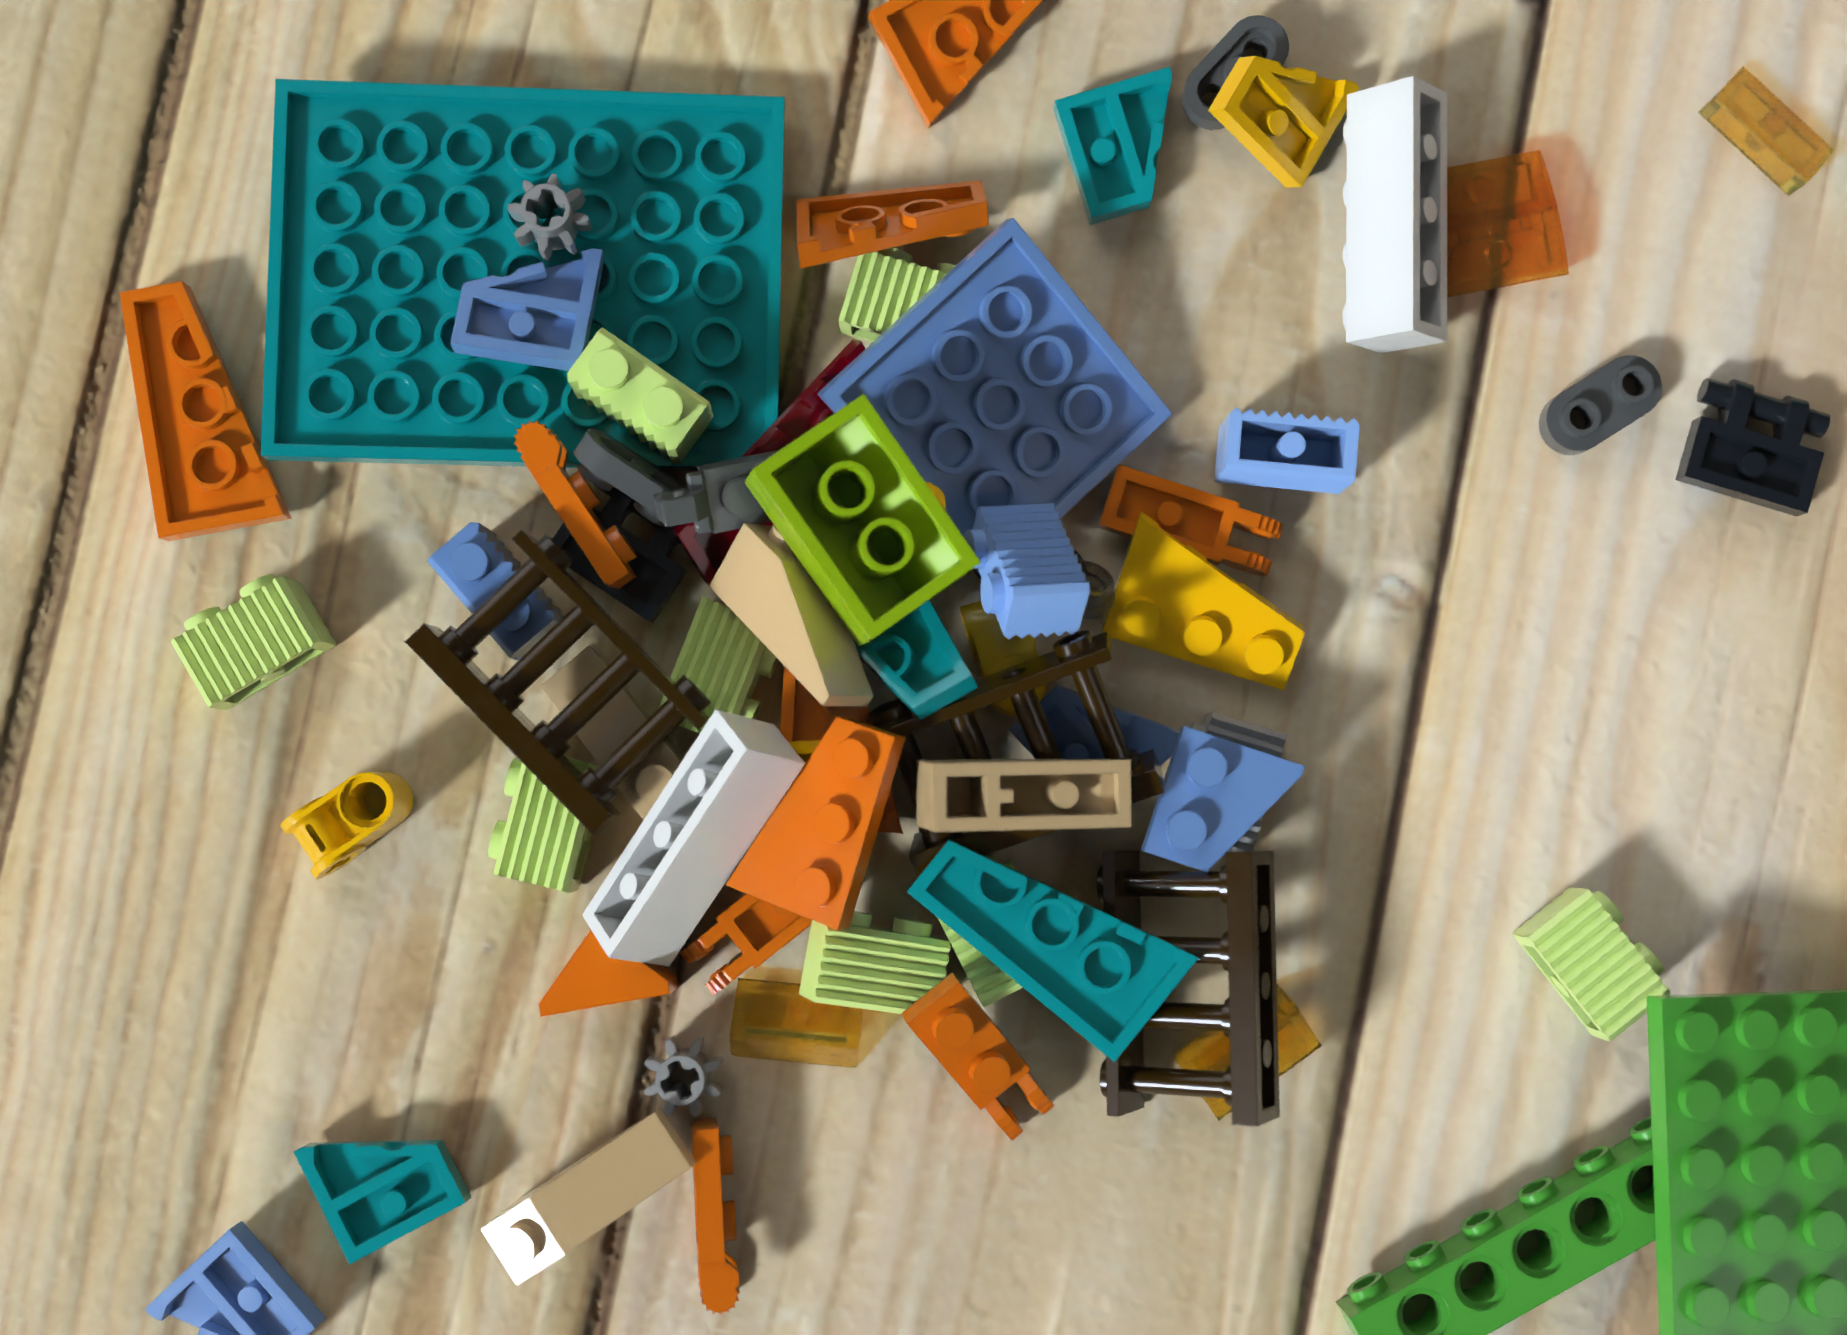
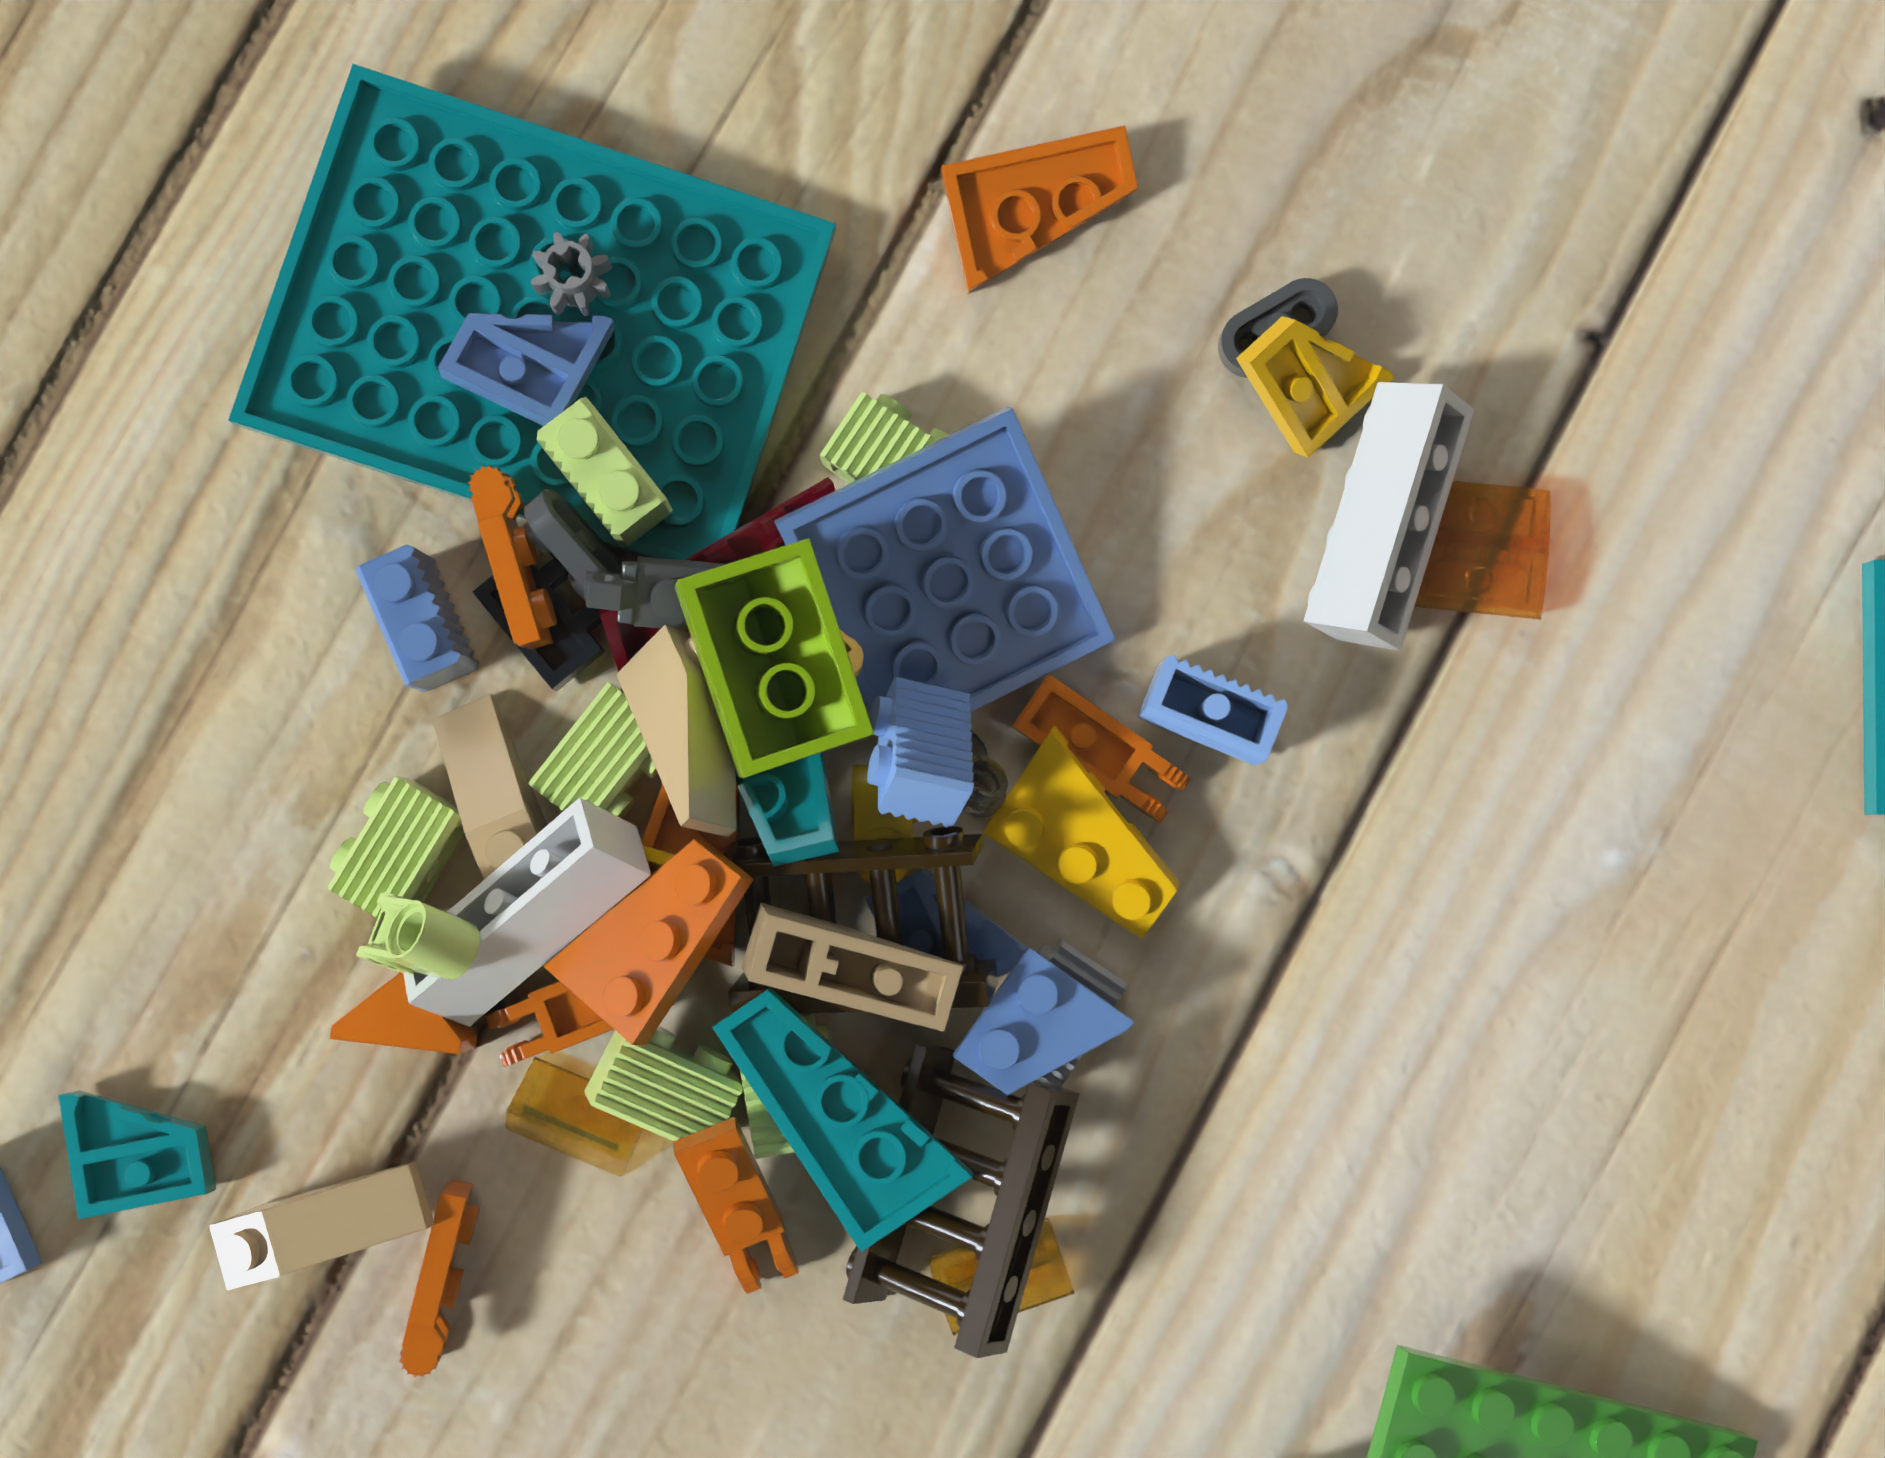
camera: 15 degrees right, 0 degrees up
(193, 426) = (178, 366): orange wing -> none
(252, 641) = (170, 594): yellowish green brick -> none
(339, 824) = (201, 793): yellow piece -> none
(498, 698) = (377, 723): dark brown fence -> none
(602, 892) = (420, 939): none -> yellowish green piece
(678, 1093) = (443, 1151): light grey gear -> none
(884, 219) = (891, 369): orange wing -> none
(1115, 142) = (1142, 361): teal wing -> none
(1592, 961) = (1359, 1292): yellowish green brick -> none
(1602, 403) = (1536, 755): dark grey plate -> none
(1749, 464) = (1660, 856): black plate -> none
(1766, 131) = (1778, 537): clear yellow slope -> none

